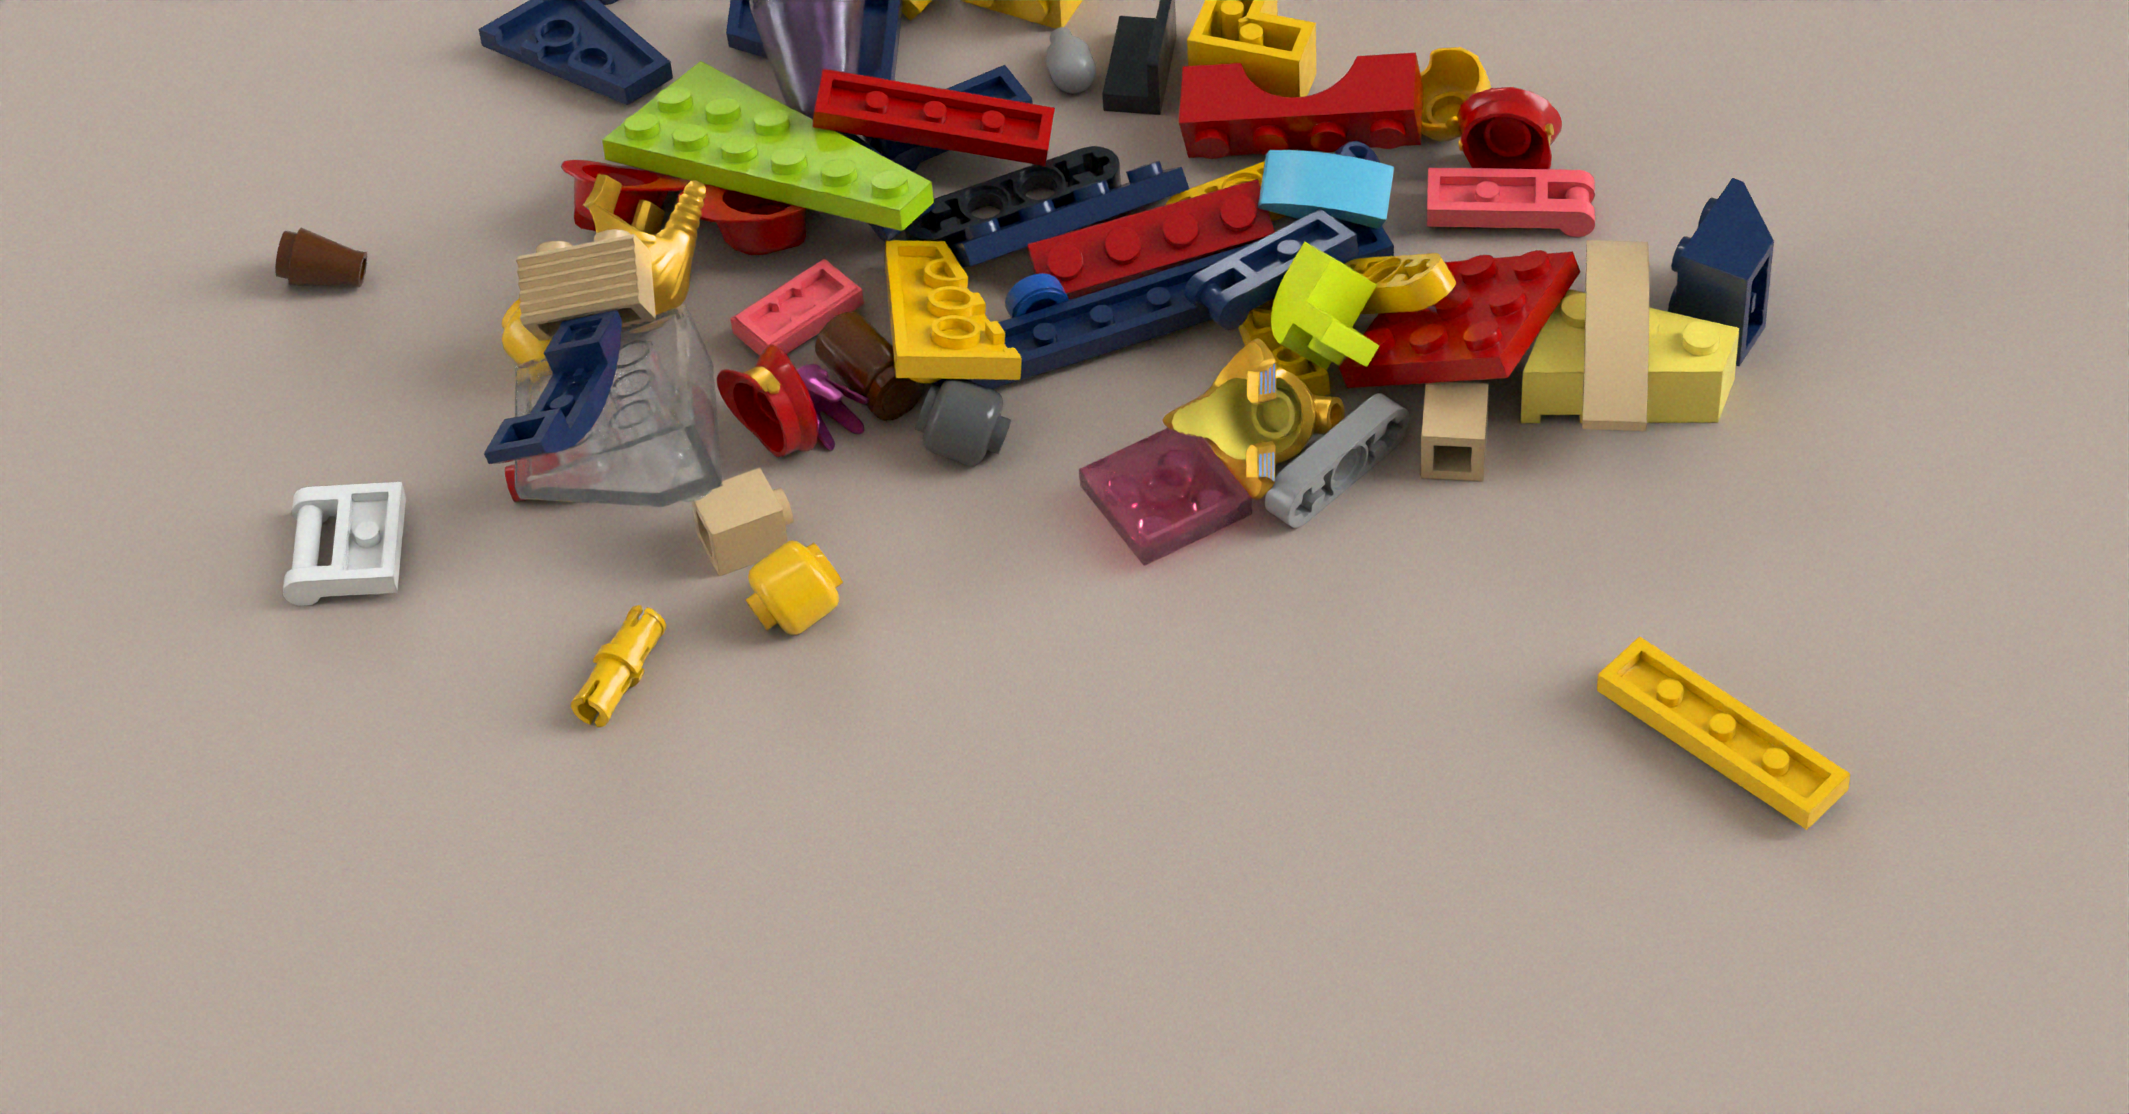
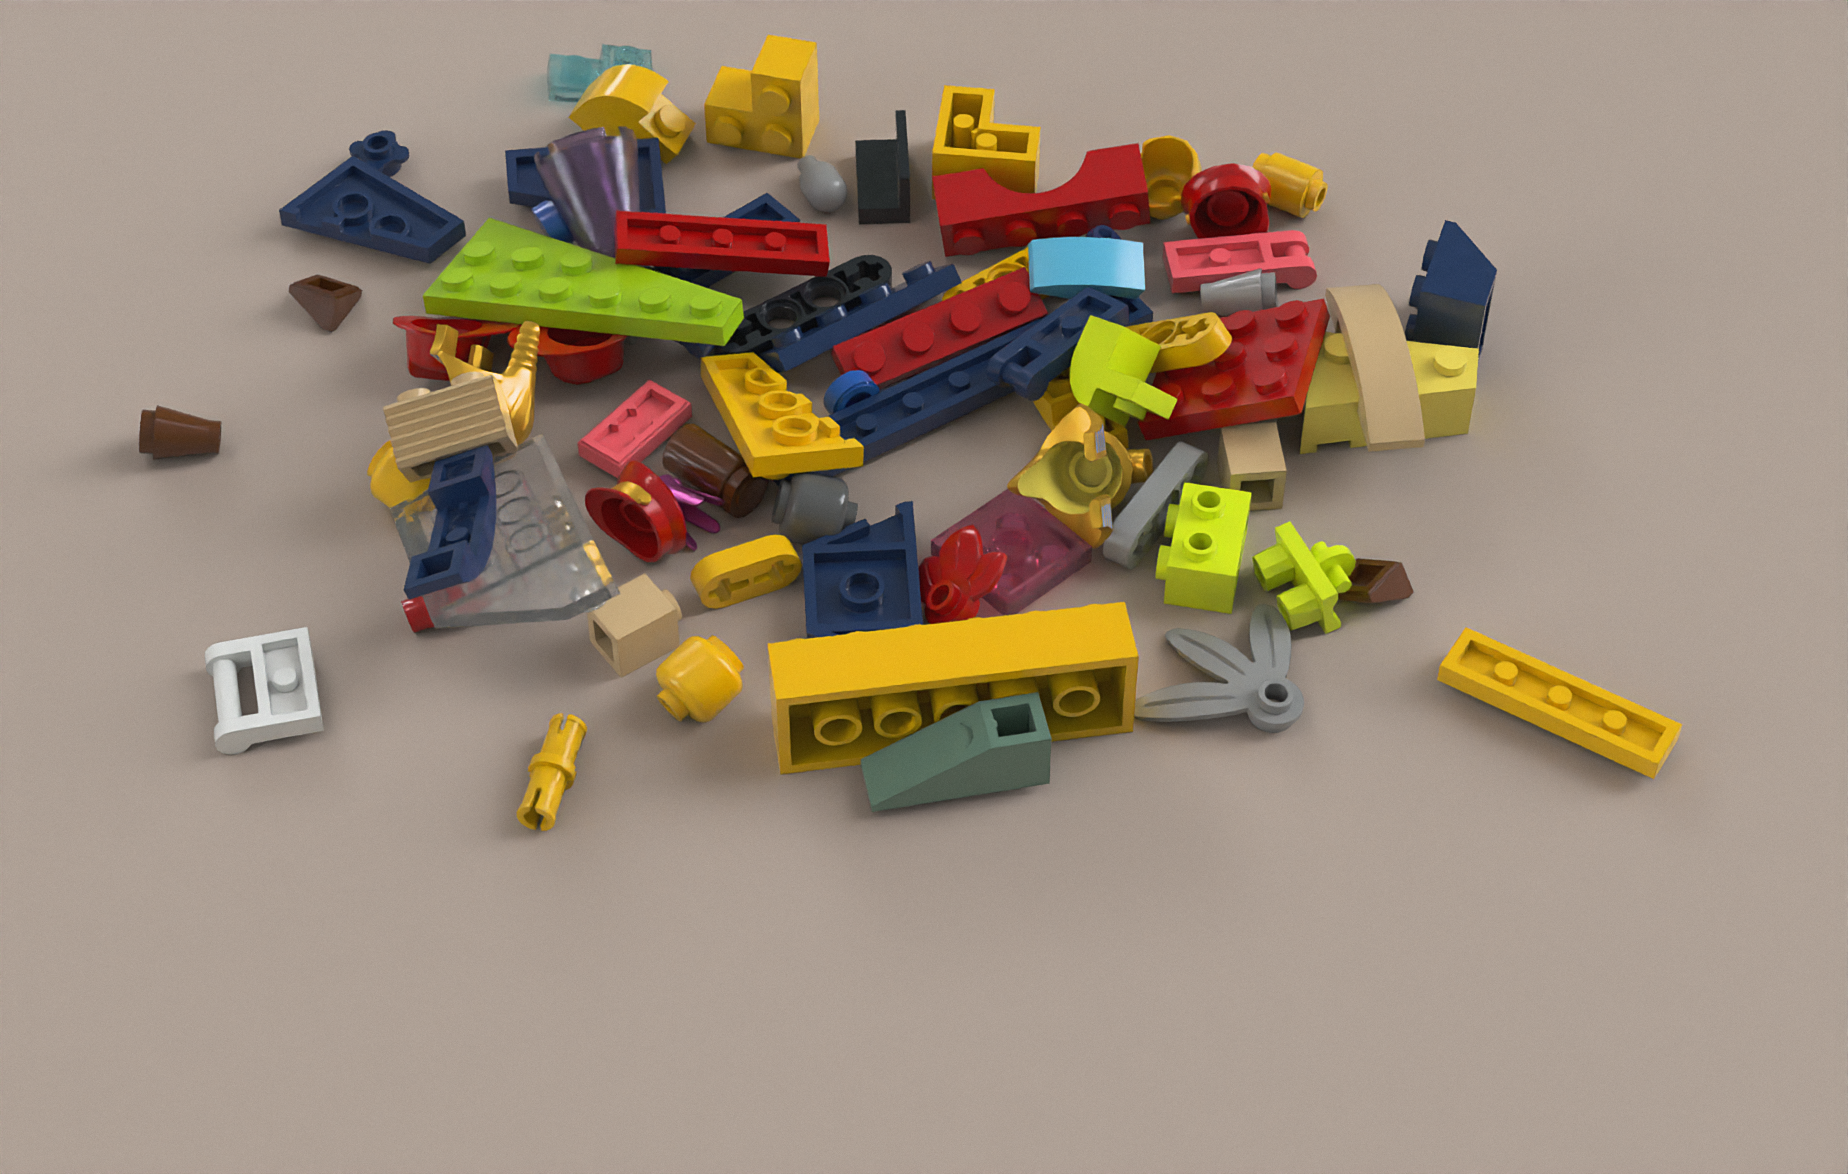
camera: 15 degrees left, 0 degrees up
(508, 132) = (325, 299): none -> reddish brown slope
(762, 74) = (552, 222): none -> blue tile
(873, 479) = (745, 571): none -> yellow beam
(997, 520) = (863, 577): none -> dark blue wing
(1051, 630) = (872, 688): none -> yellow brick
(1052, 703) = (967, 754): none -> sand green slope
(1094, 515) = (958, 577): none -> red plate
(1377, 513) = (1205, 547): none -> neon yellow brick
(1380, 666) = (1244, 684): none -> light grey plant
(1479, 585) = (1315, 574): none -> neon yellow hips
(1499, 235) = (1241, 292): none -> light grey cone
(1555, 574) = (1377, 582): none -> reddish brown slope
(1592, 116) = (1294, 184): none -> yellow brick

